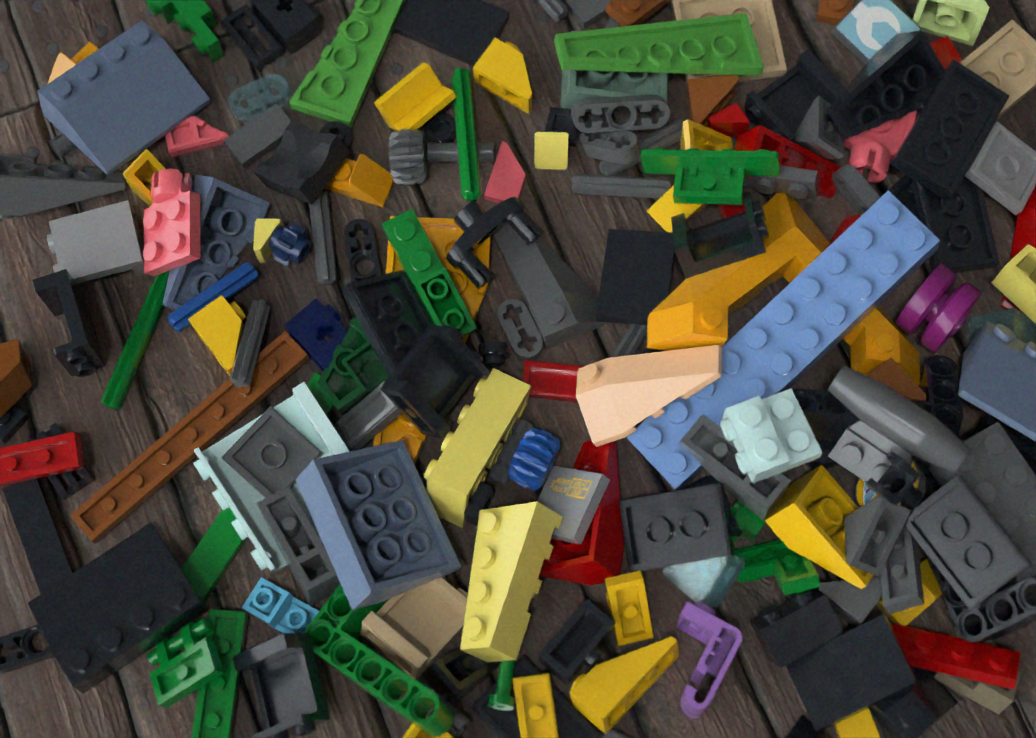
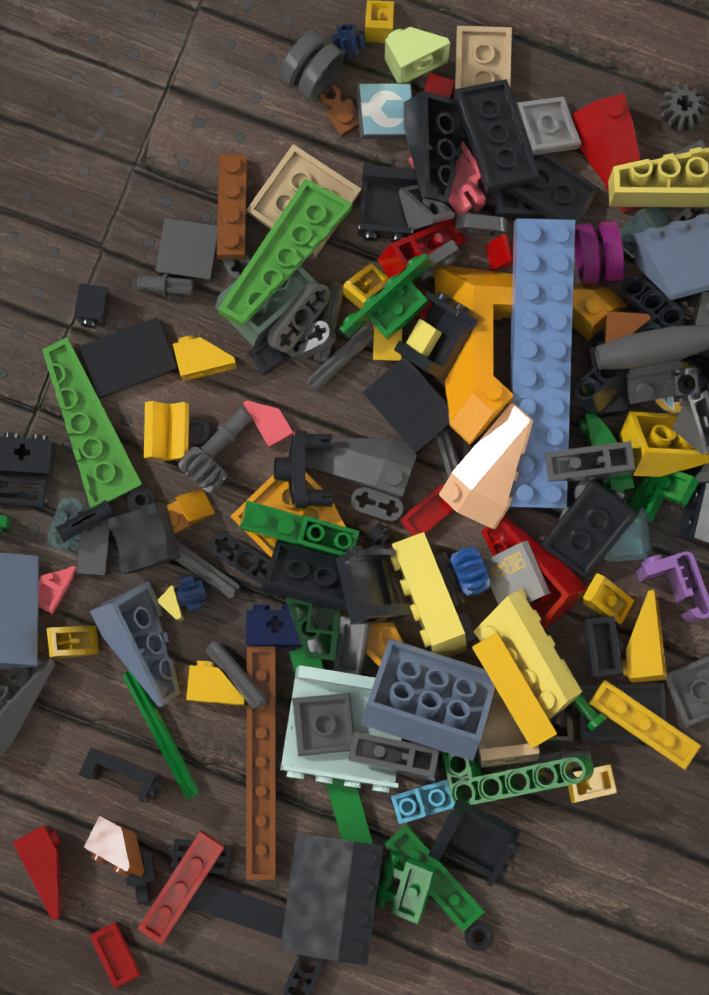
camera: 50 degrees left, 10 degrees up
(97, 242) = (77, 714): light grey panel -> none
(171, 223) = (113, 655): coral plate -> none
(226, 287) = (180, 671): blue axle -> none
(272, 103) = (84, 521): none -> black pin
(455, 590) = (514, 690): none -> yellow tile
(466, 135) = (222, 421): green axle -> none
(551, 150) = (278, 379): light yellow slope -> none
(706, 228) = (423, 337): none -> light yellow tile
(709, 96) = (334, 255): dark orange slope -> none
(729, 121) = (362, 256): red slope -> none
(769, 435) = (595, 427): light aqua plate -> none

